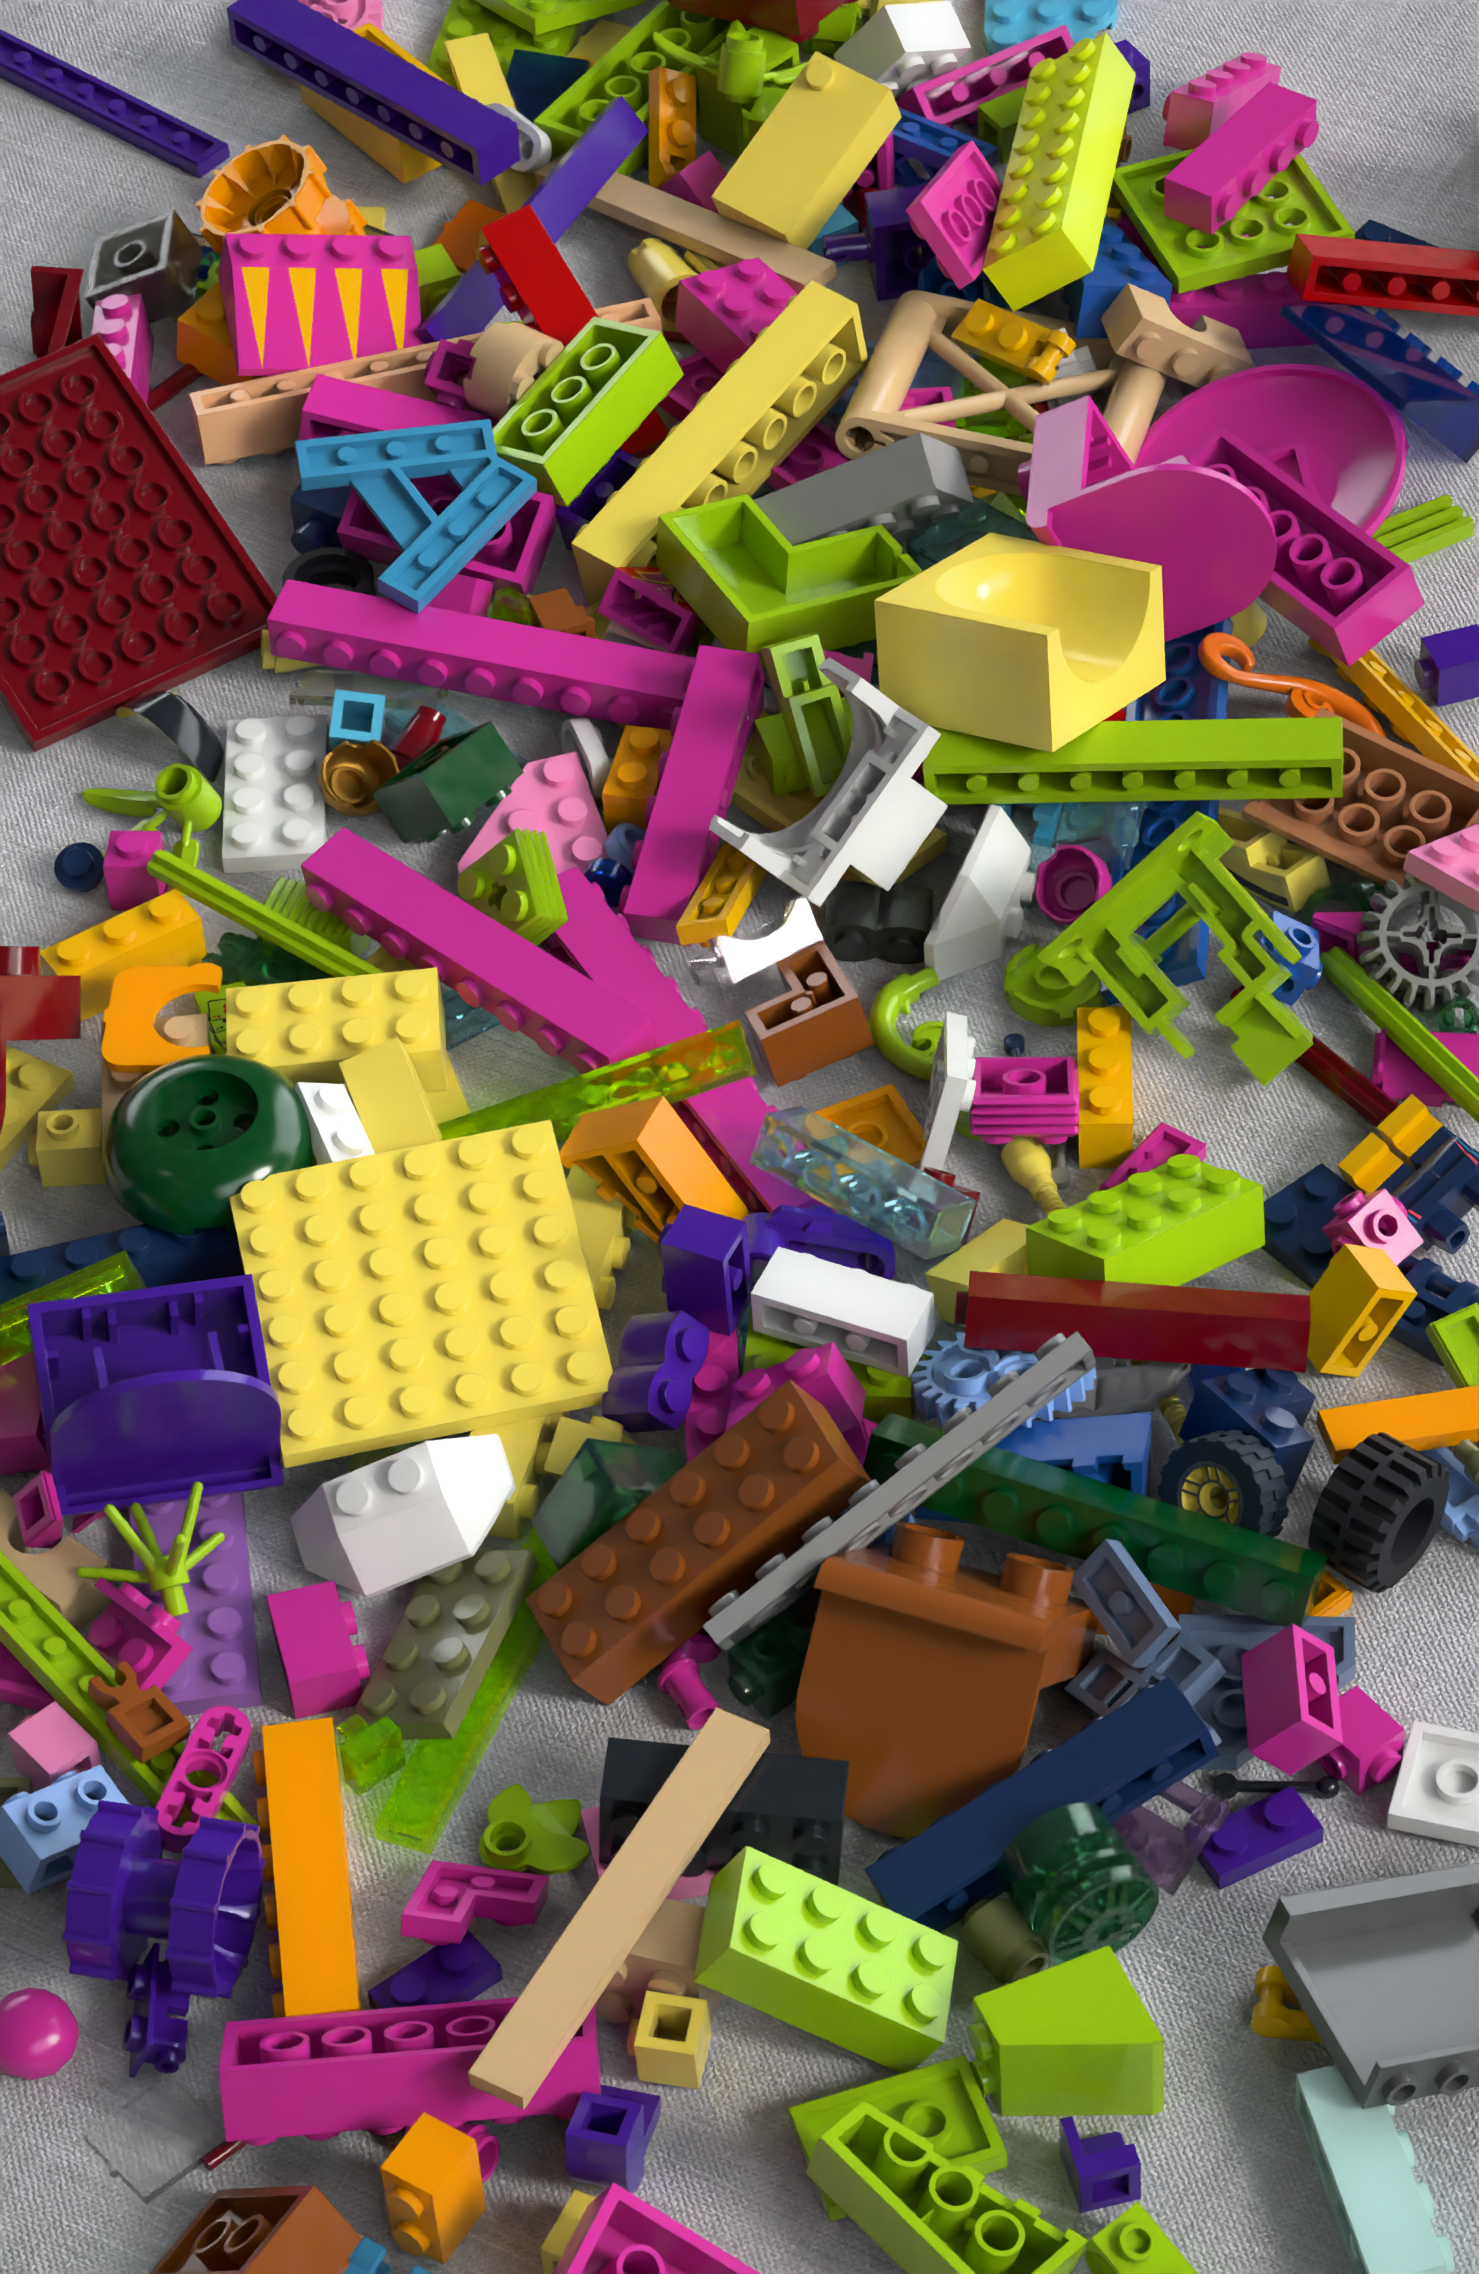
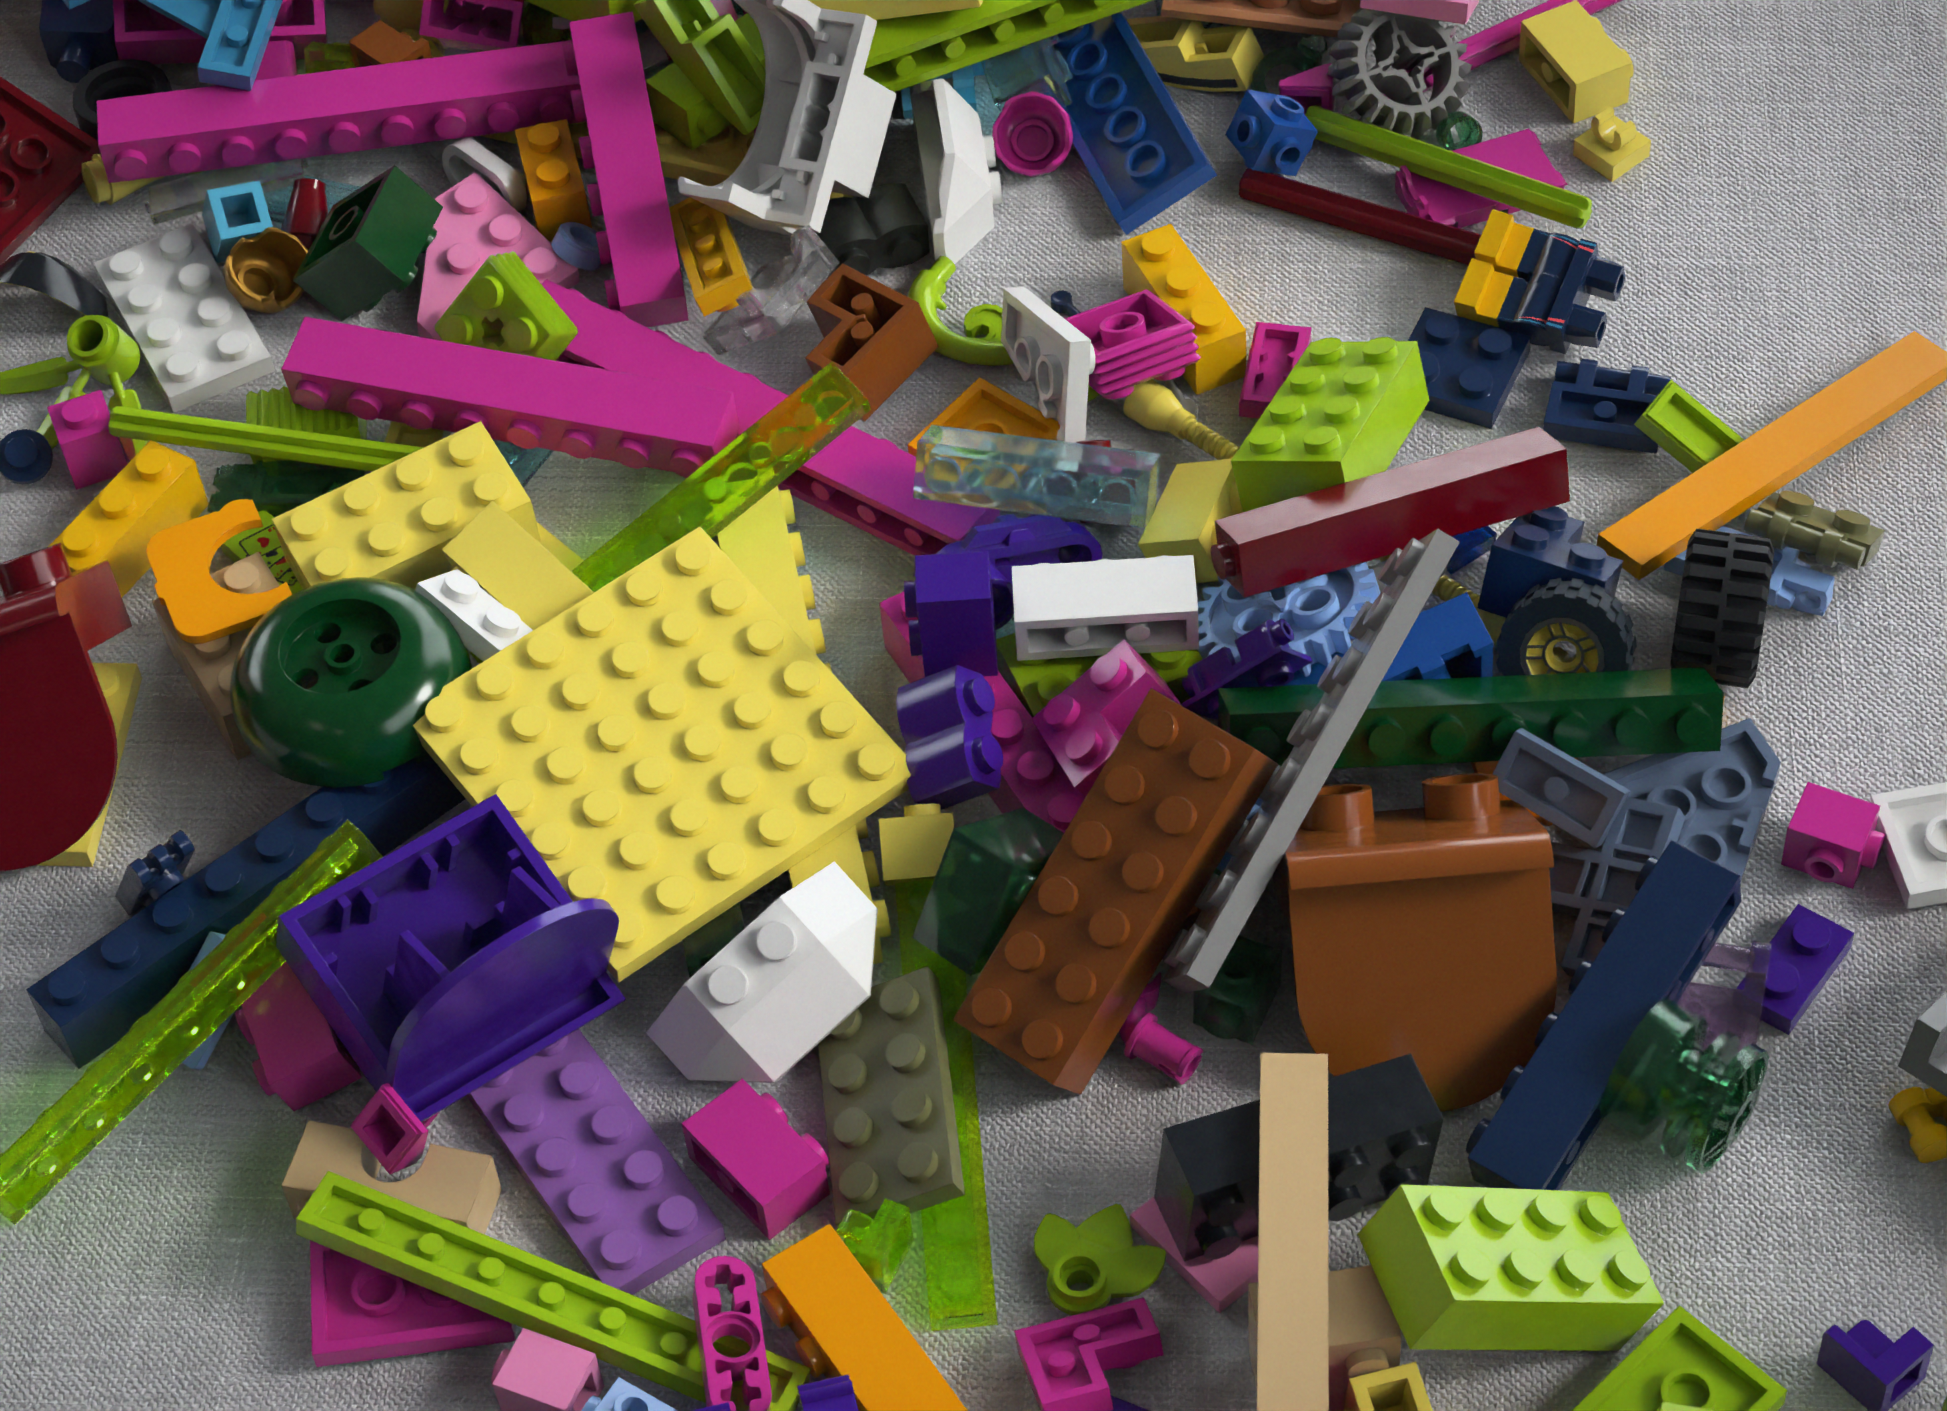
camera: 25 degrees left, 5 degrees up
(68, 1147) = (182, 740): light yellow brick -> none
(137, 1636) = (569, 1226): dark pink bracket -> none
(138, 1718) = (631, 1309): dark orange plate -> none
(161, 1572) = (562, 1143): lime plant -> none
(610, 877) = (581, 277): clear blue tile -> none
(649, 1164) = (823, 539): light orange wedge -> none
(944, 1398) = (1264, 662): none -> dark purple hinge
(1003, 1940) = (1635, 1173): olive brick -> none
(1043, 993) = (1064, 232): lime tile -> none
(1069, 2043) = (1789, 1248): lime slope -> none
(1127, 963) = (1203, 79): lime container -> none
(1227, 1786) = (1823, 892): black hinge -> none
(1291, 1699) = (1768, 820): dark pink brick -> none
(1355, 1309) = (1573, 410): yellow brick -> none
(1373, 1222) = (1532, 352): brick -> none

